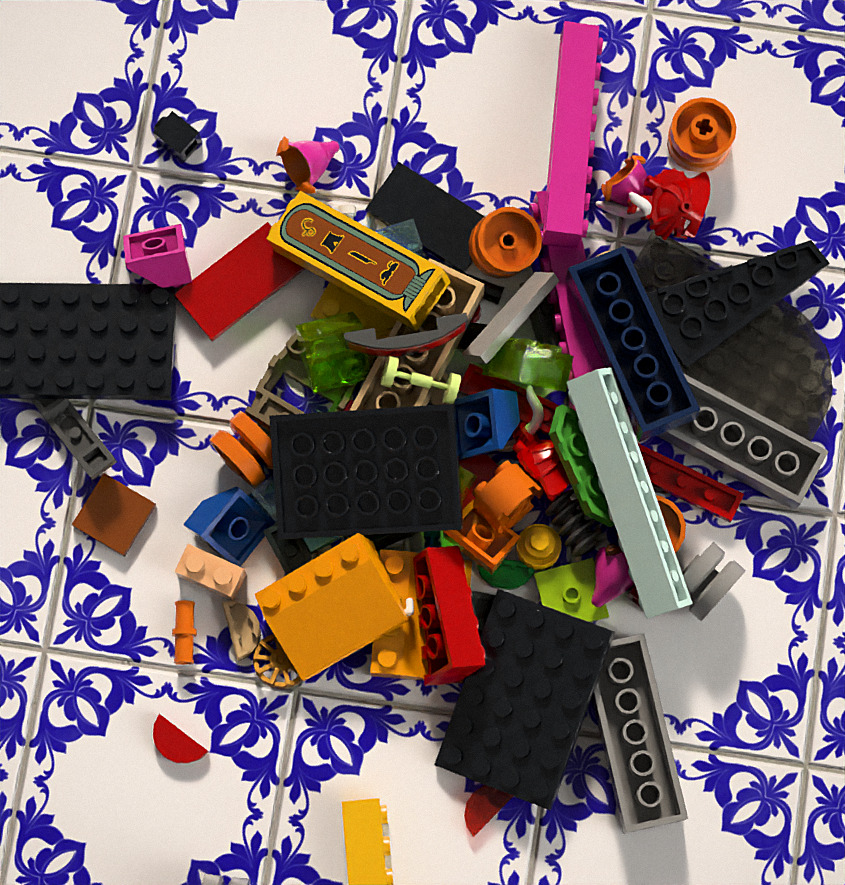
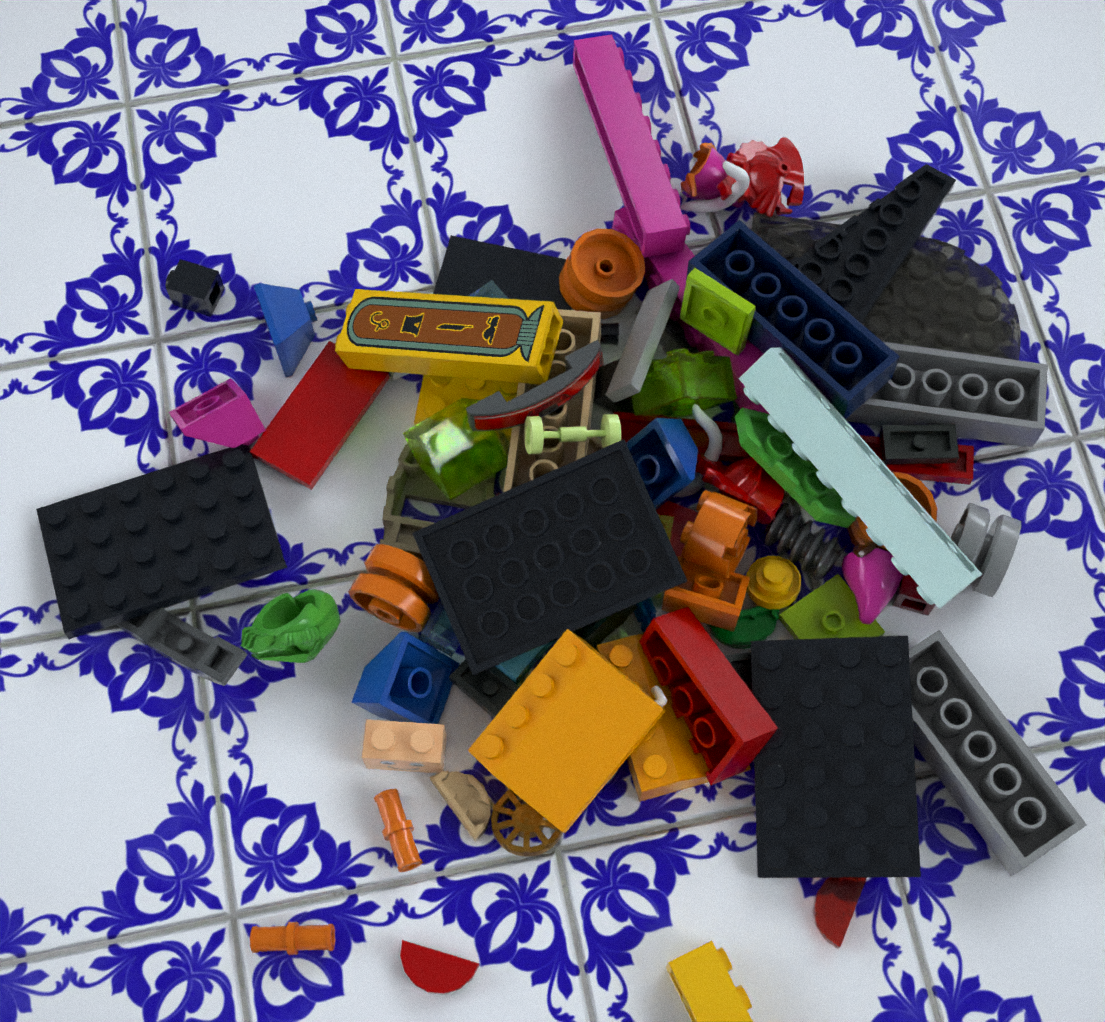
camera: 20 degrees left, 10 degrees down
(81, 683) = (292, 938): none -> orange pin
(114, 514) = (263, 723): dark orange tile -> none
(164, 454) = (292, 627): none -> bright green helmet
(238, 197) = (288, 323): none -> blue slope
(306, 161) = (347, 264): hat -> none
(574, 318) = (716, 311): none -> lime plate
(698, 478) = (919, 444): none -> pearl dark grey plate
(701, 134) = (762, 103): orange wheel -> none

